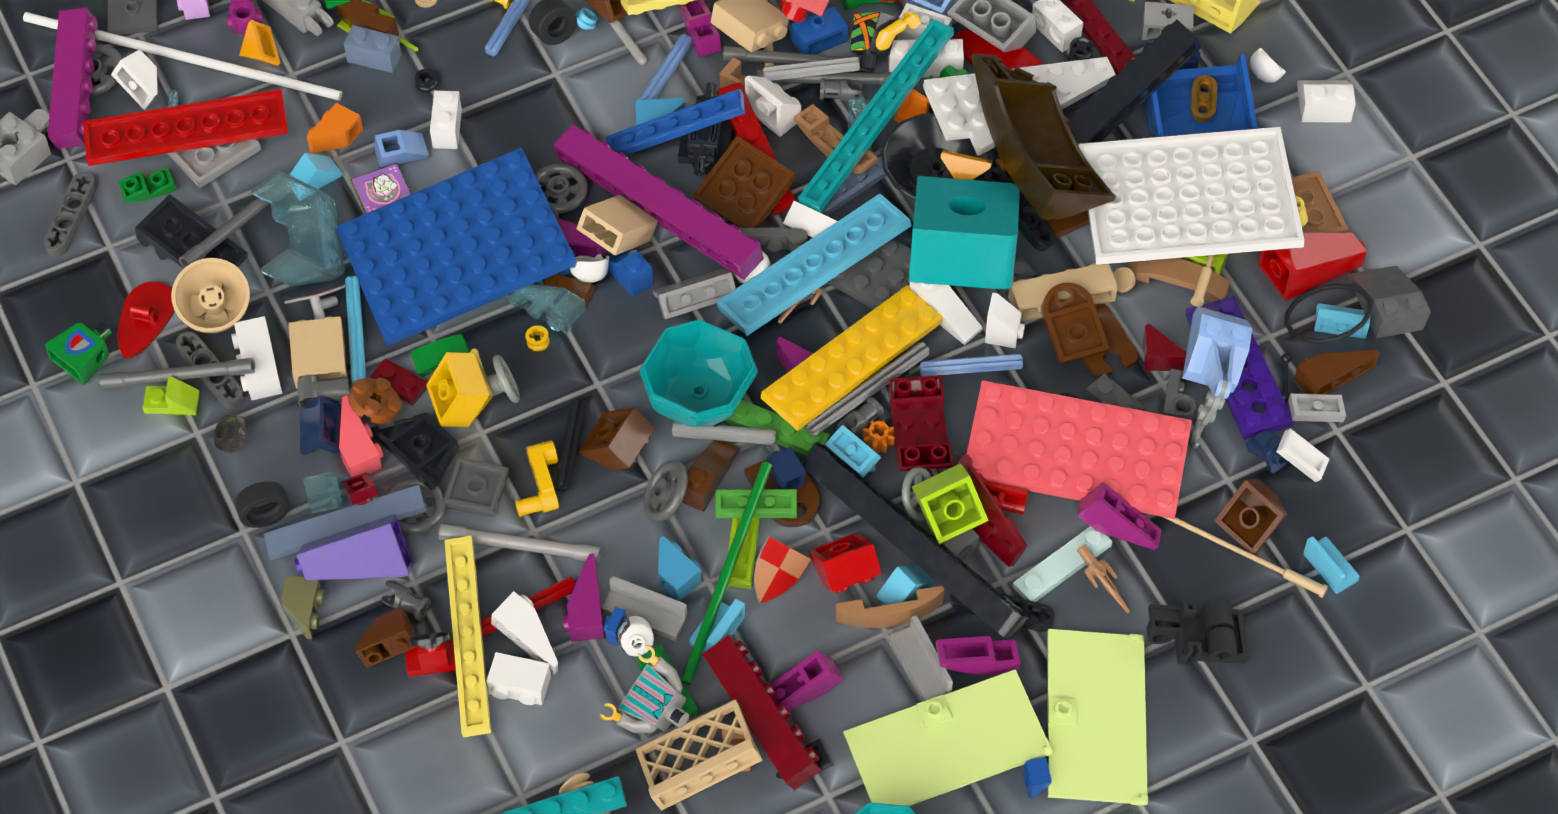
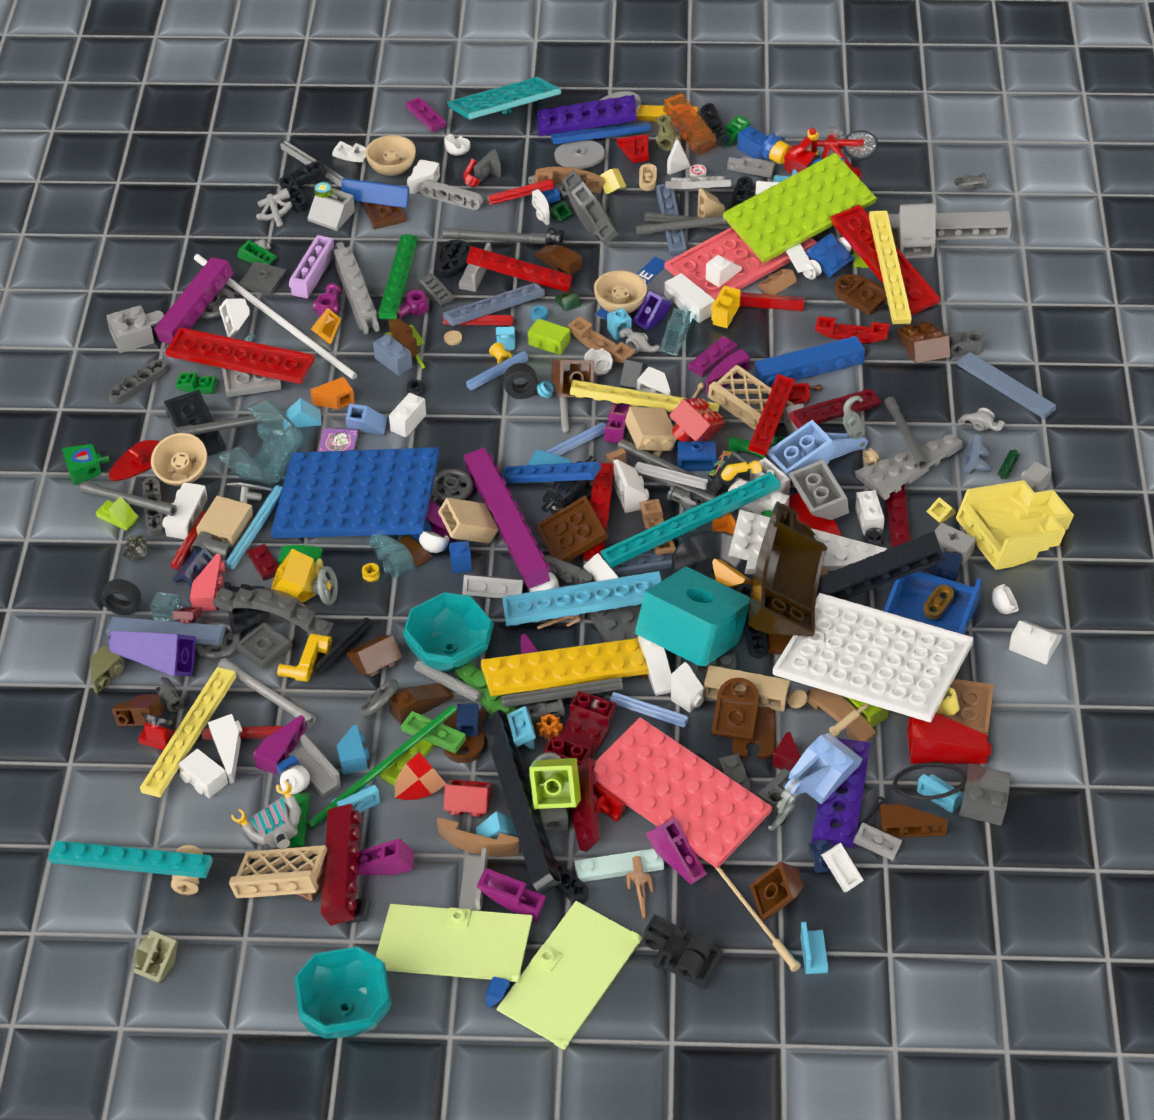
camera: 30 degrees right, 10 degrees down
(288, 392) = (185, 548): none -> red axle
(375, 400) = (245, 560): dark orange plate -> none
(458, 429) = (276, 603): none -> dark grey piece

